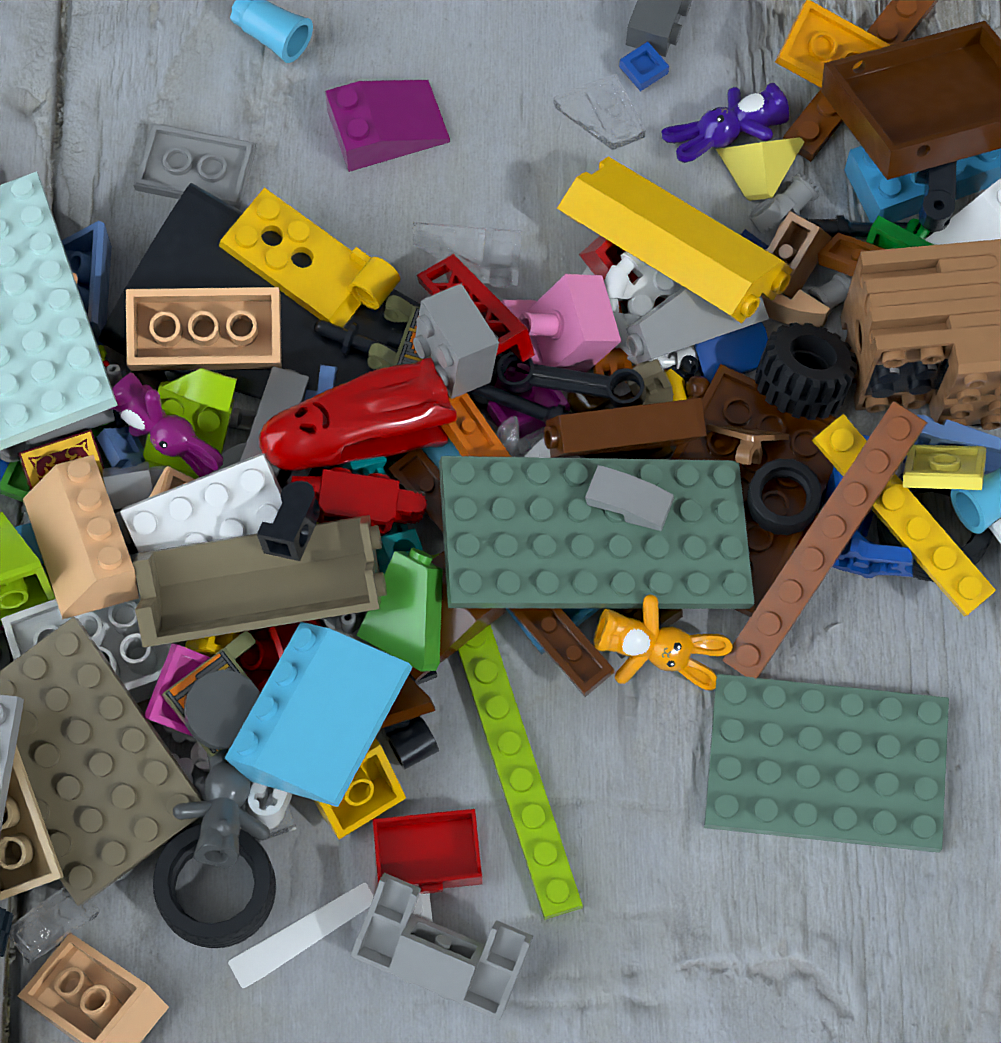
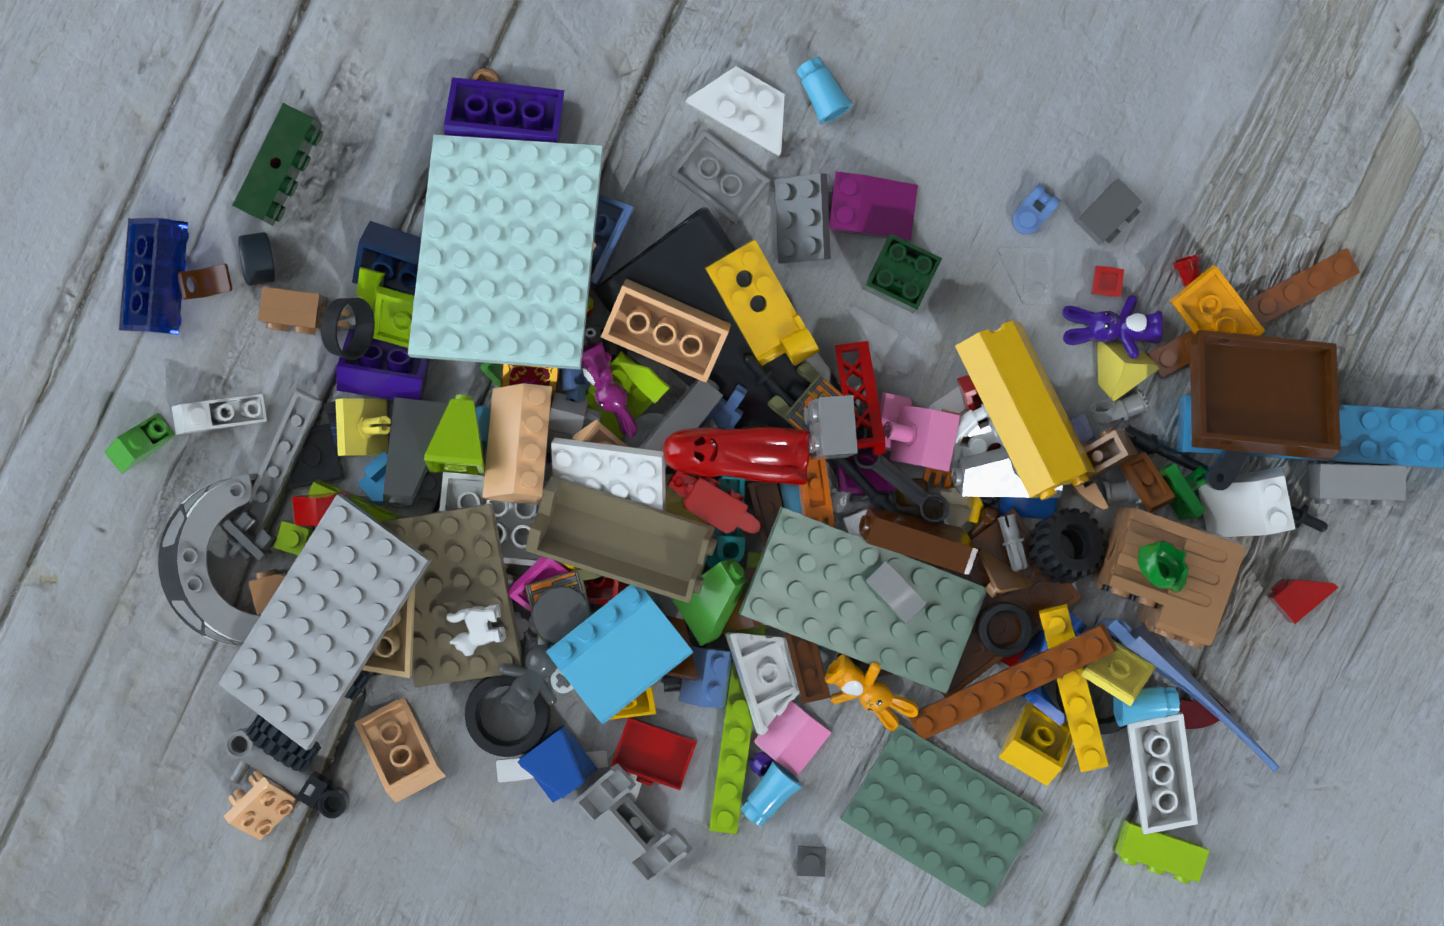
camera: 25 degrees right, 20 degrees up
(130, 776) = (478, 622): none -> white animal
(188, 84) = (744, 107): none -> white wing
(292, 524) = (662, 513): black leg -> none
(307, 920) = (558, 764): none -> blue piece
(312, 160) = (802, 218): none -> dark grey plate
(455, 165) = (902, 273): none -> dark green brick
(455, 726) = (713, 681): none -> medium blue slope
(519, 685) = (765, 675): none -> white wing
(570, 60) = (1028, 218): none -> medium blue plate
(571, 801) = (760, 763): none -> dark purple hinge
(592, 753) = (793, 738): none -> bright pink slope
(600, 830) = (770, 793): none -> medium azure plant
(644, 66) = (1077, 250): blue plate -> none
(694, 896) = (811, 861): none -> dark grey plate
(695, 83) = (1107, 281): none -> red plate
(740, 395) = (1013, 543): none -> light grey axle
(776, 30) = (1188, 268): none -> red piece
(897, 620) = (1037, 745): none -> yellow slope
(928, 290) = (1163, 565): none -> green hair

